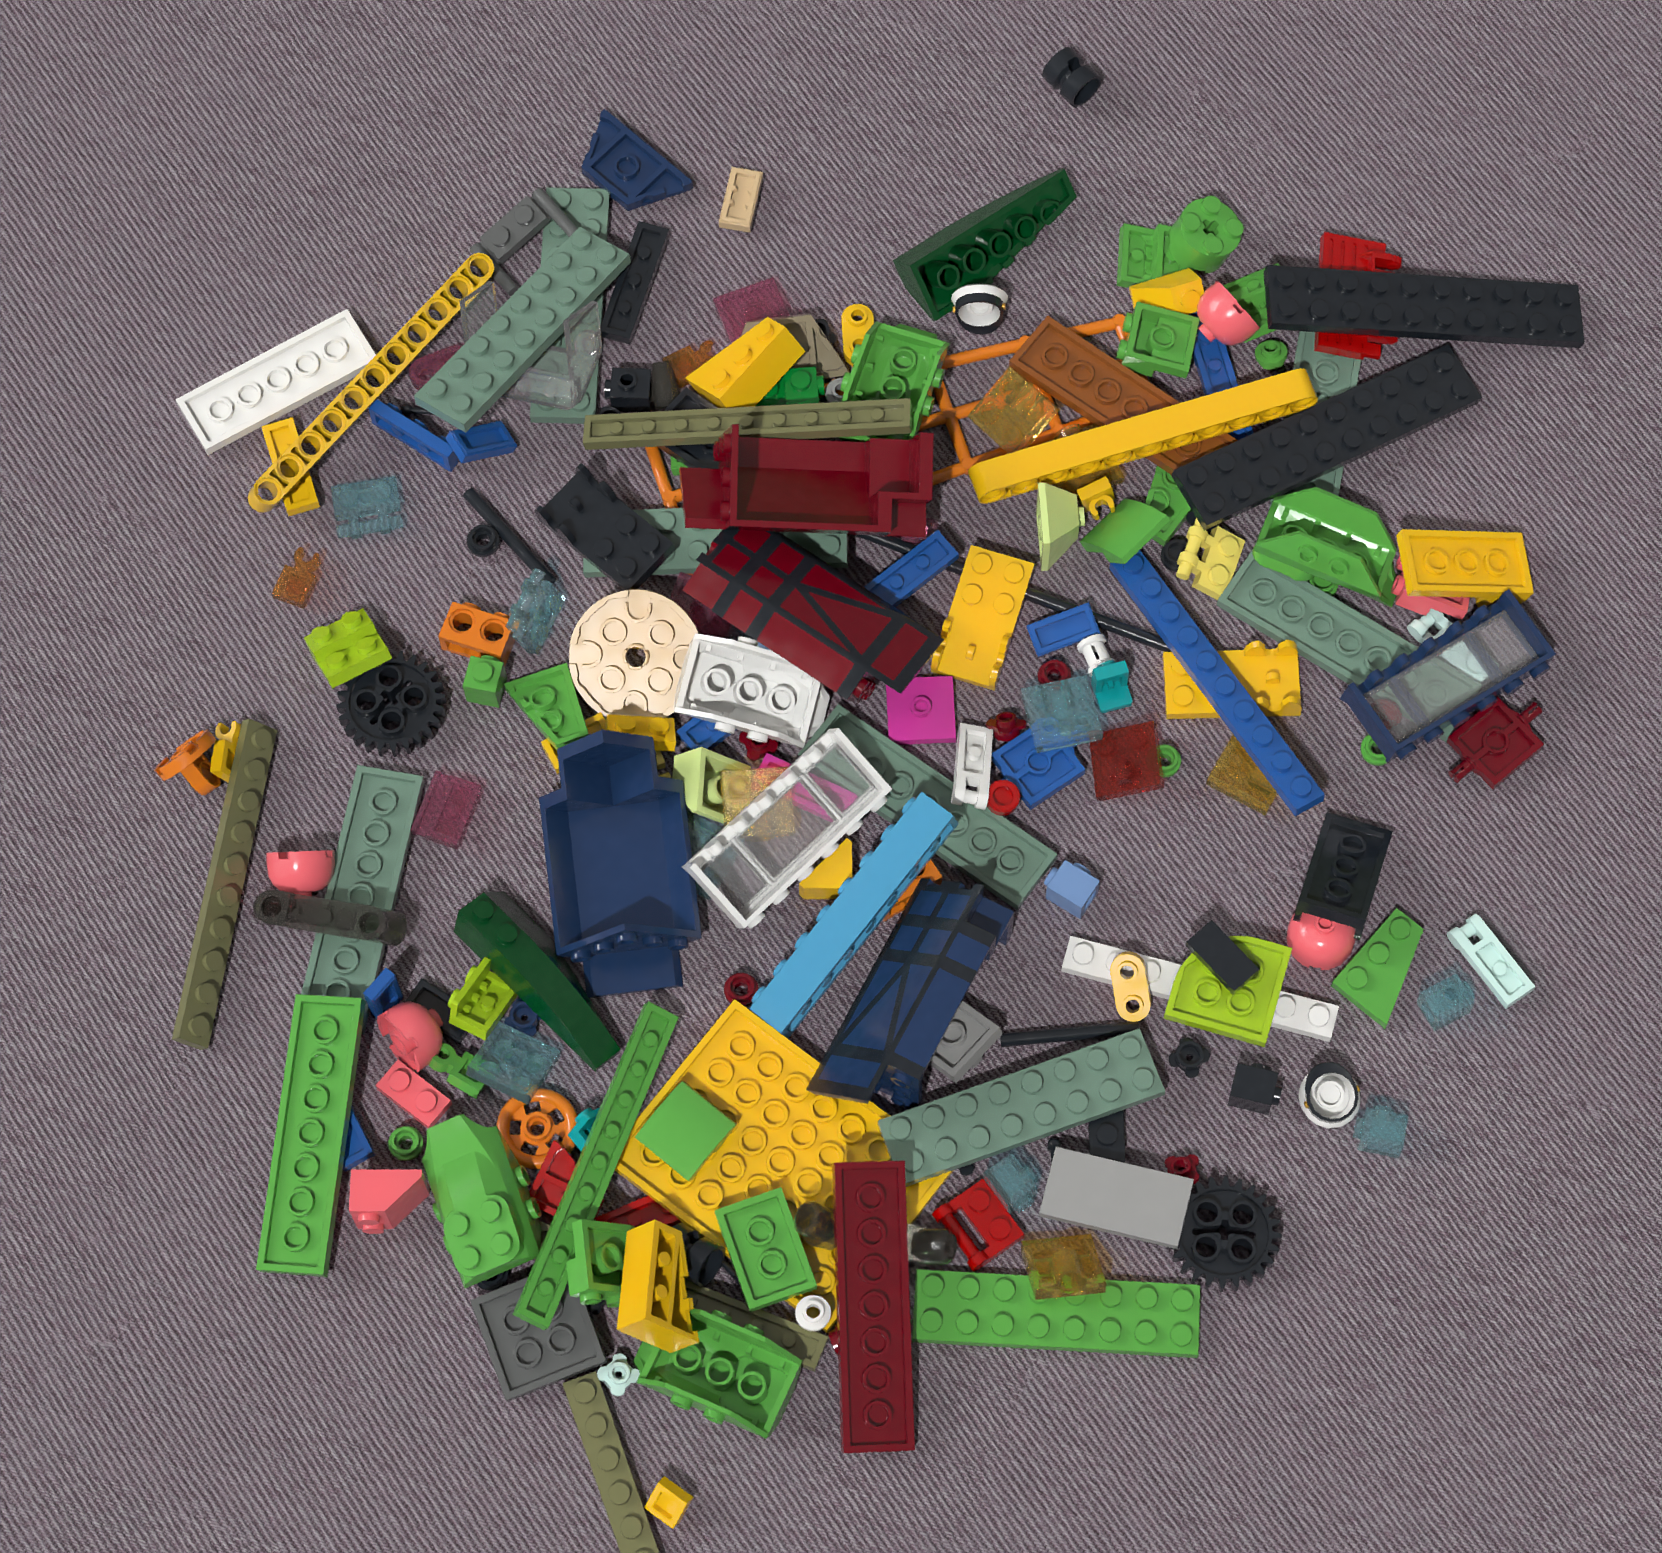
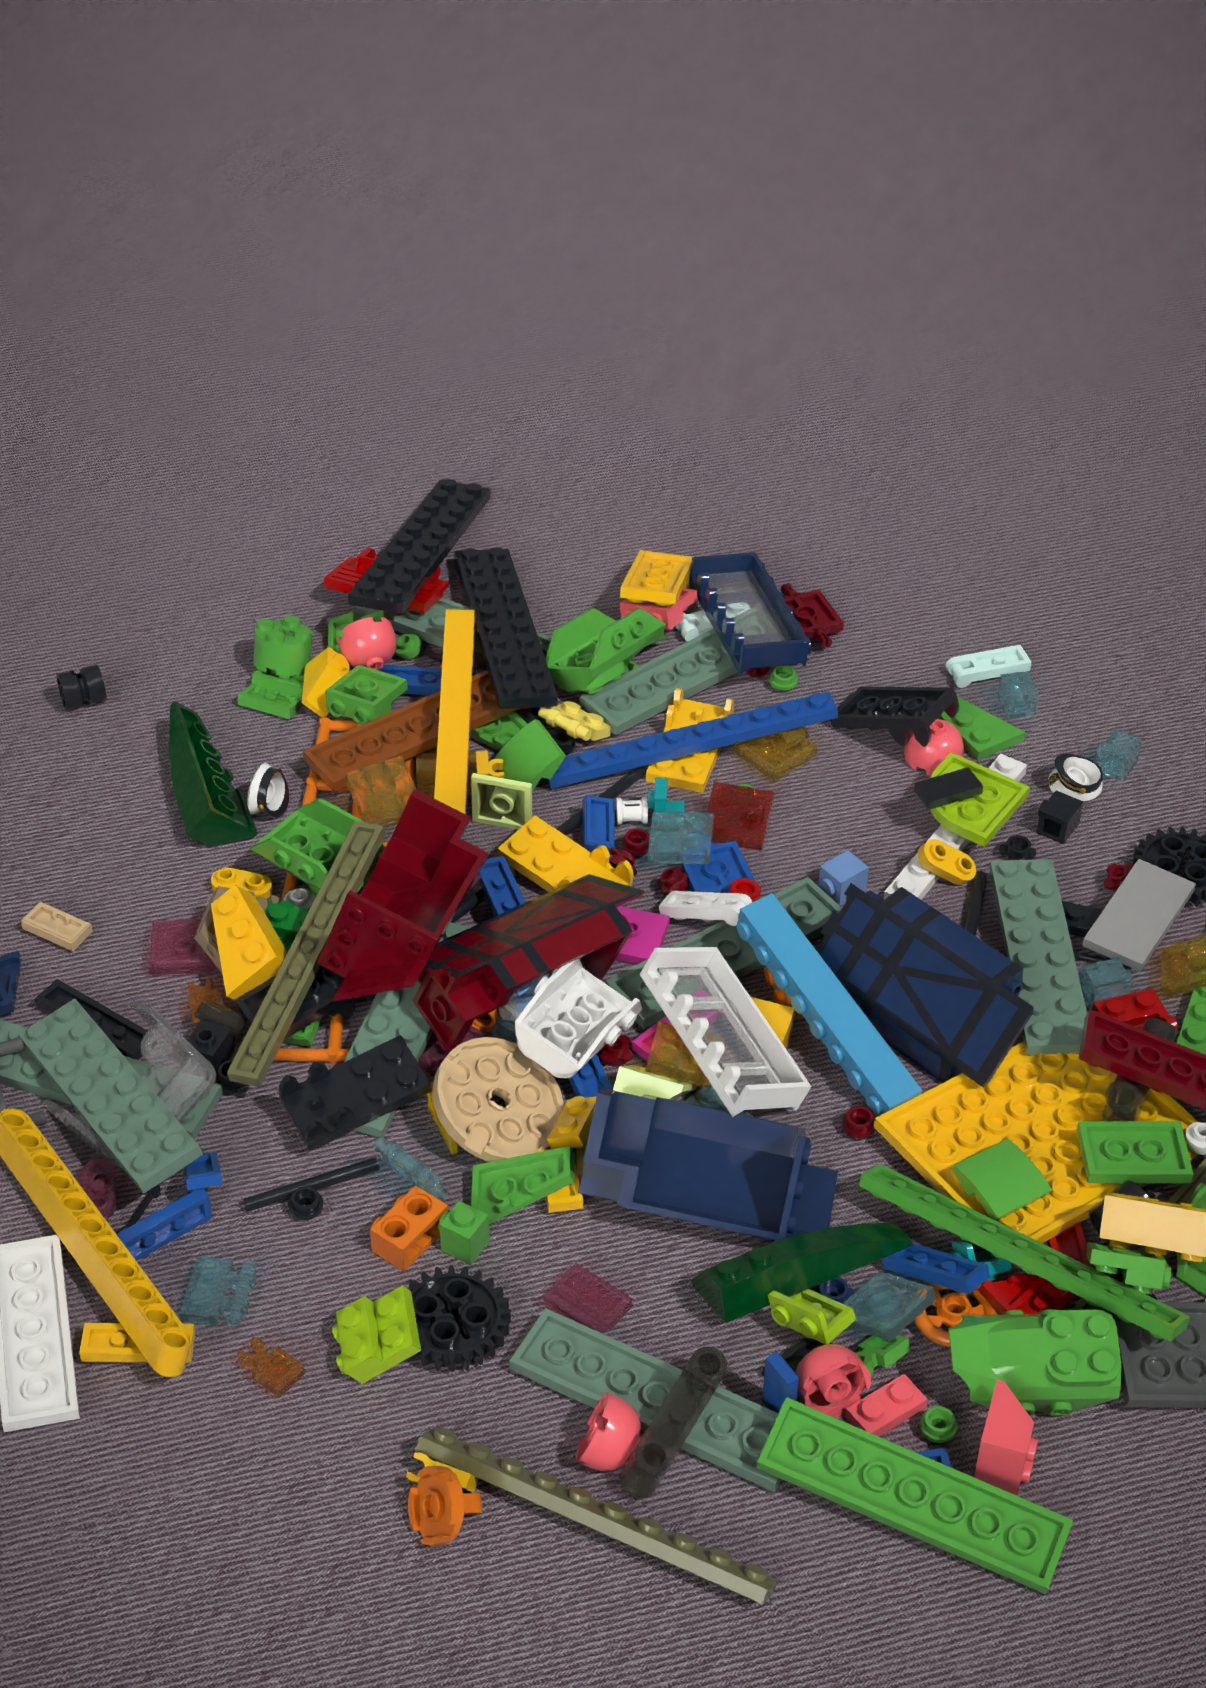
camera: 75 degrees left, 25 degrees down
(565, 1099) = (938, 1268): none -> blue plate
(1013, 669) = (621, 856): none -> dark red plate

